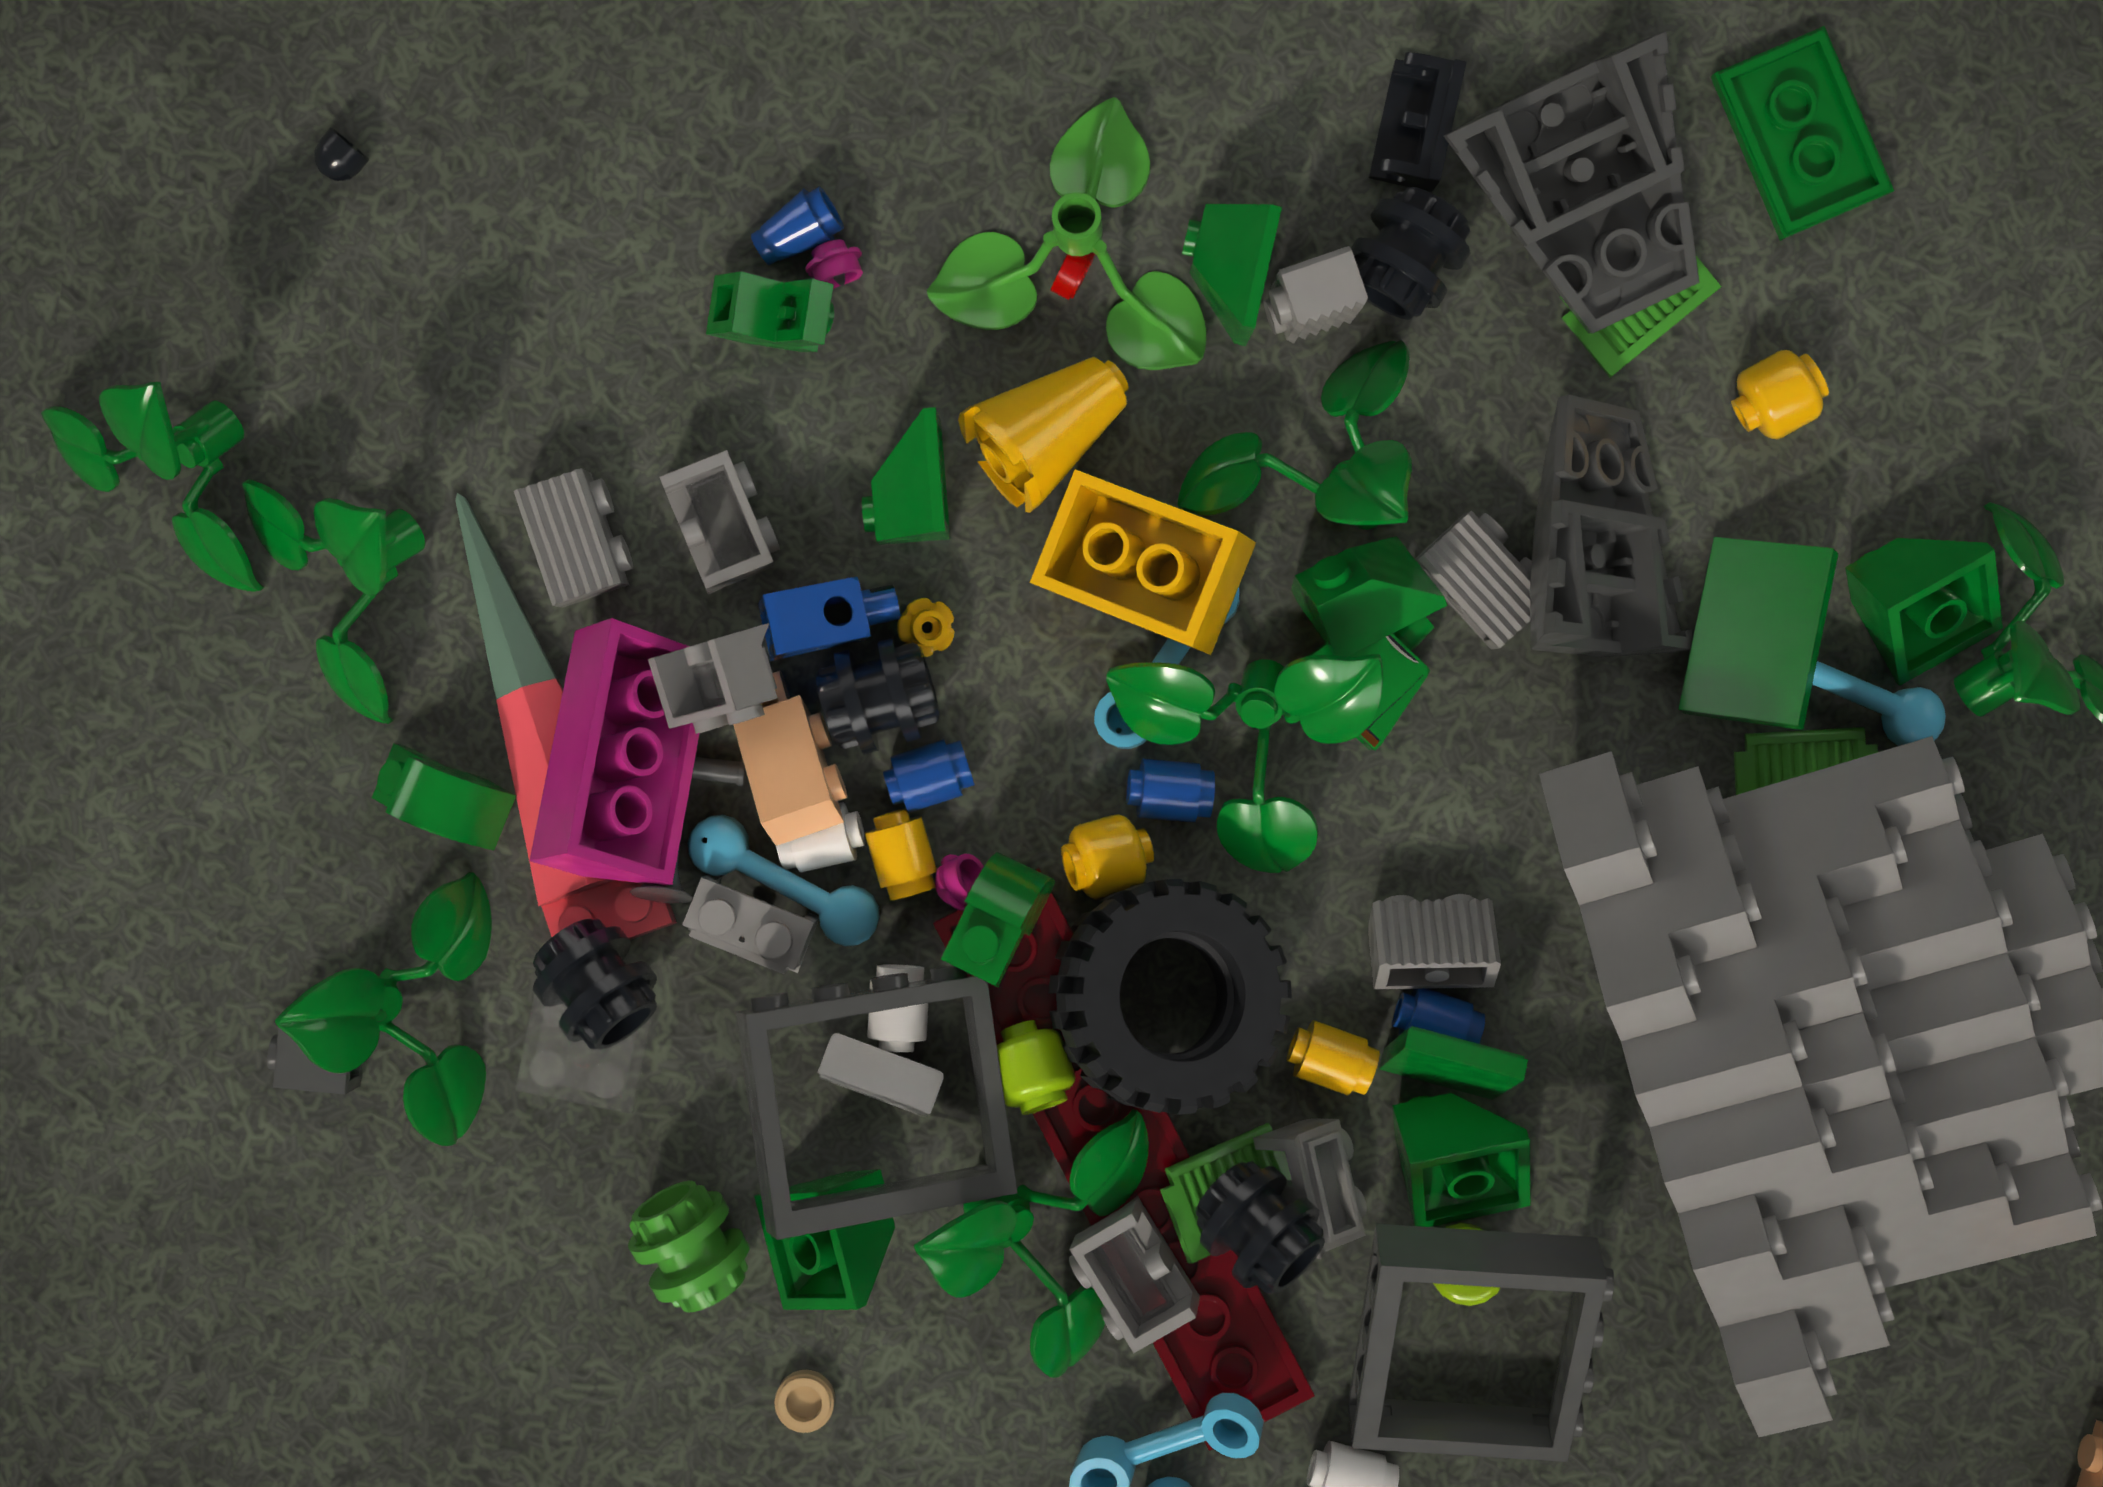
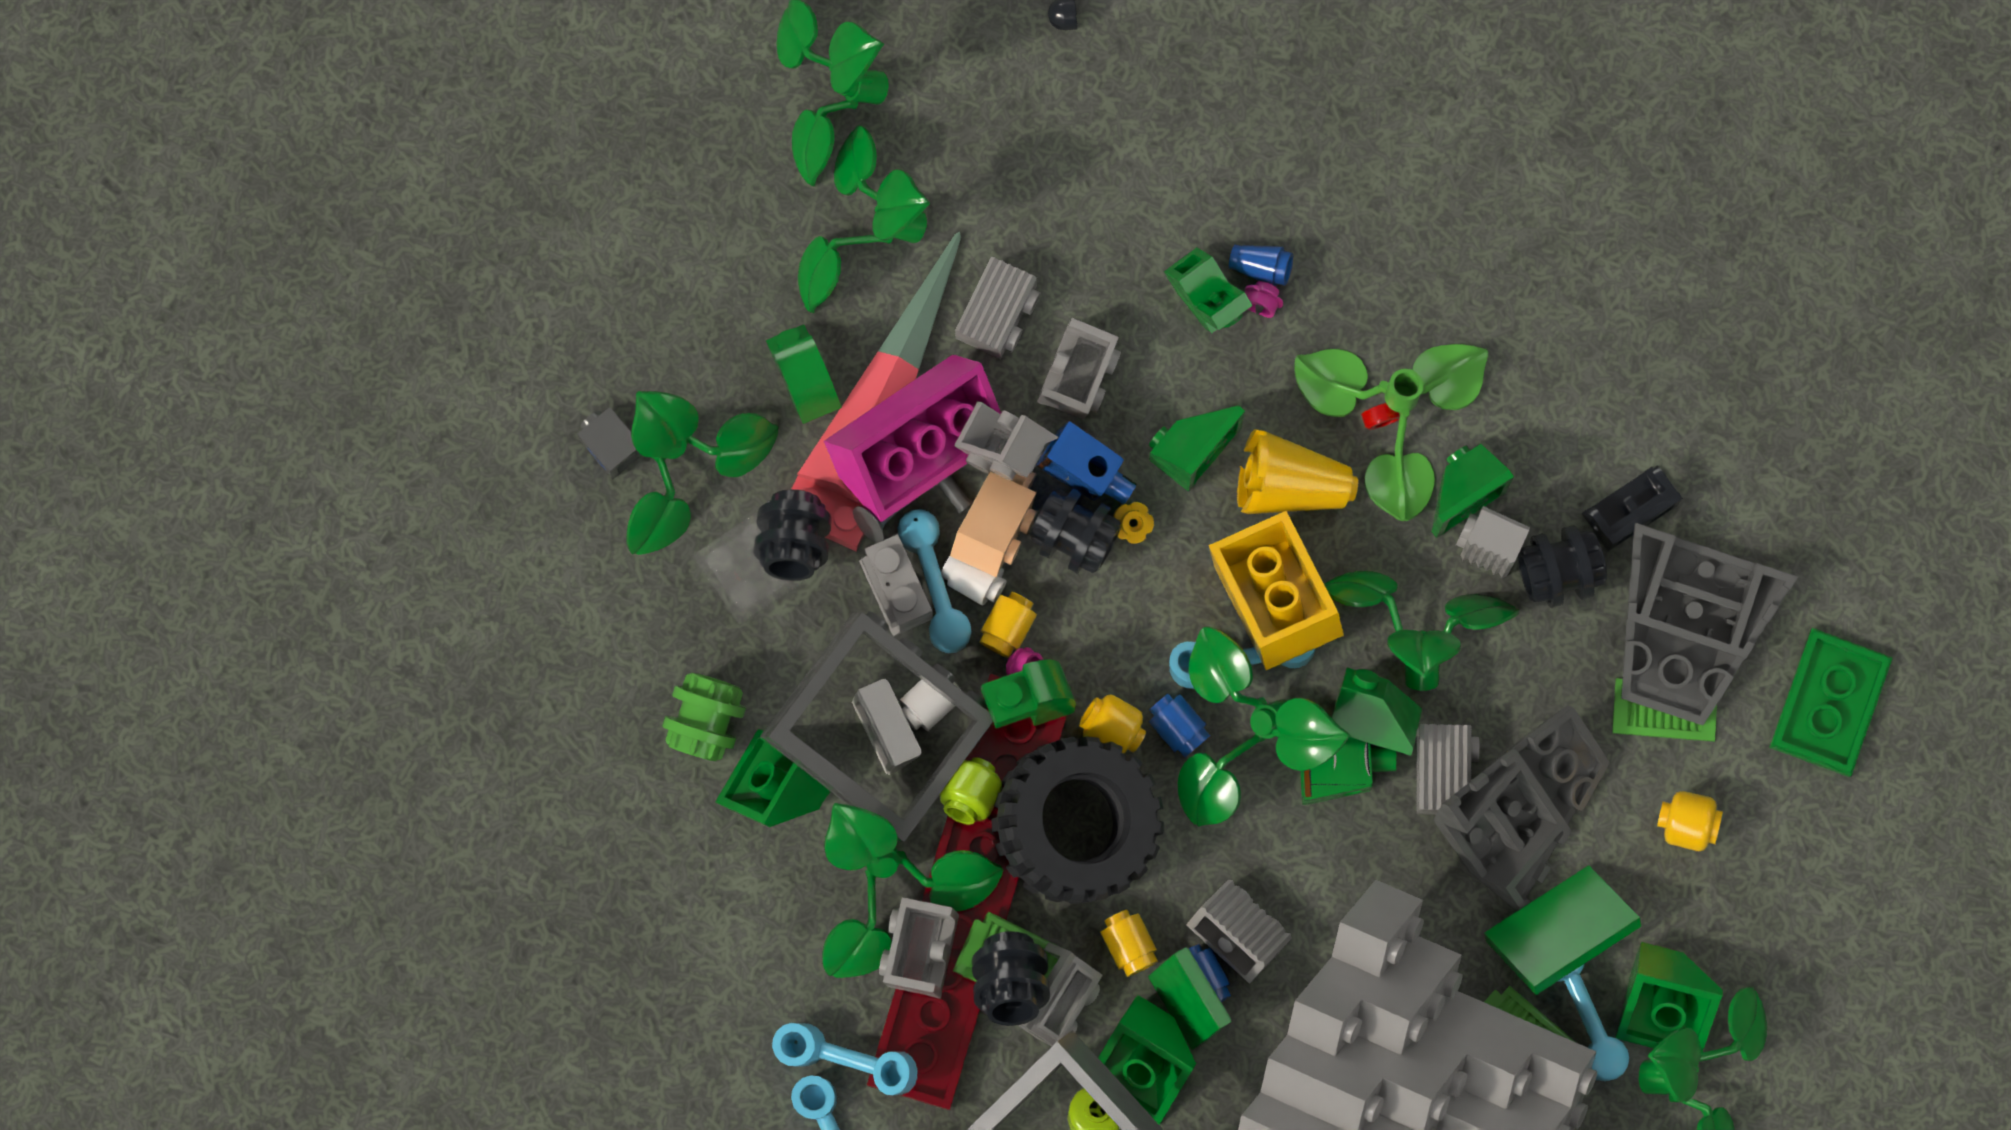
camera: 45 degrees right, 10 degrees down
(804, 1401) = (679, 859): tan tile -> none
(928, 775) = (1061, 597): blue brick -> none

